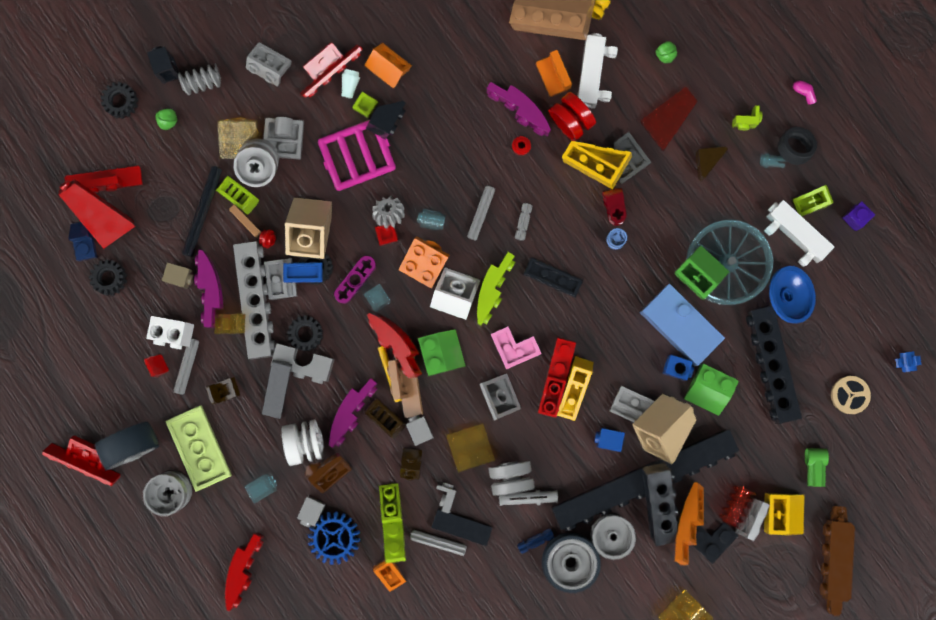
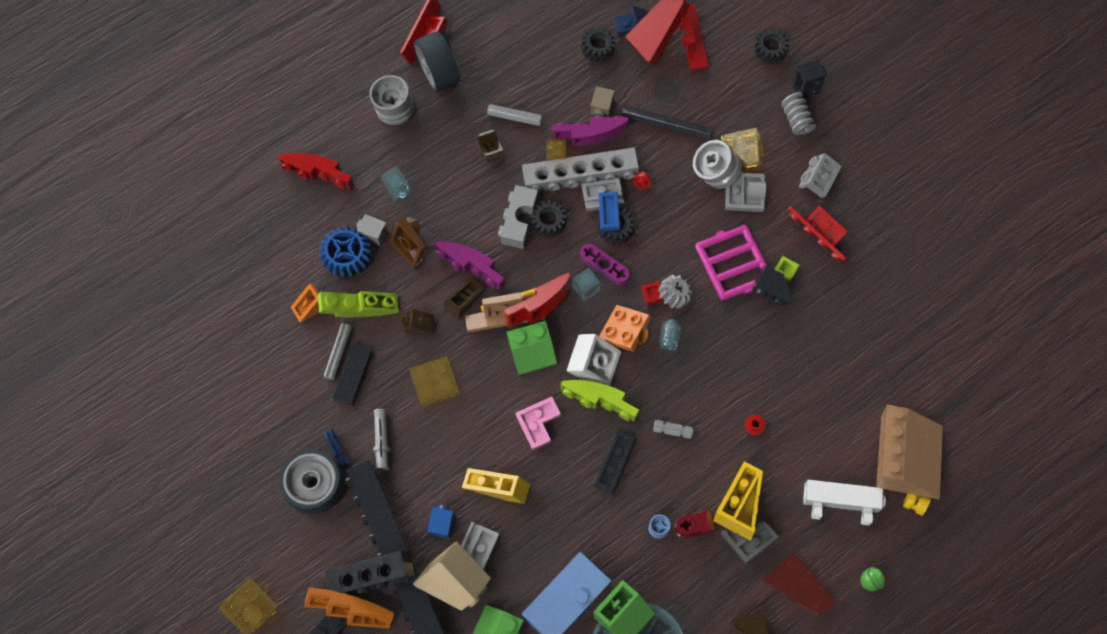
camera: 90 degrees right, 15 degrees down
(156, 365) = (514, 88): red slope -> none
(166, 119) = (756, 86): bright green piece -> none
(170, 332) = (546, 97): white brick -> none
(198, 448) = (435, 129): yellowish green tile -> none
(245, 221) = (659, 159): medium nougat tile -> none
(246, 203) = (677, 162): lime slope -> none
(277, 389) = (492, 193): tile -> none
(302, 442) = (439, 216): white wheel -> none
(308, 227) = (654, 214): tan slope -> none
(349, 82) = (807, 251): light aqua cone -> none
(387, 65) = (830, 288): orange panel -> none
(419, 430) = (451, 327): light grey brick -> none
(446, 500) = (381, 358): light grey bracket -> none
(481, 213) = (680, 385): light grey axle -> none
(500, 396) = (486, 406): light grey slope -> none
(510, 474) = (397, 417): light grey wheel -> none
(527, 111) = (793, 427): magenta slope -> none
(554, 74) = (836, 457): orange panel -> none
(556, 377) = (504, 463): red slope -> none
(572, 116) = (792, 476): red wheel -> none
(624, 534) = (337, 537): light grey wheel -> none
(669, 368) = (523, 587): blue brick -> none

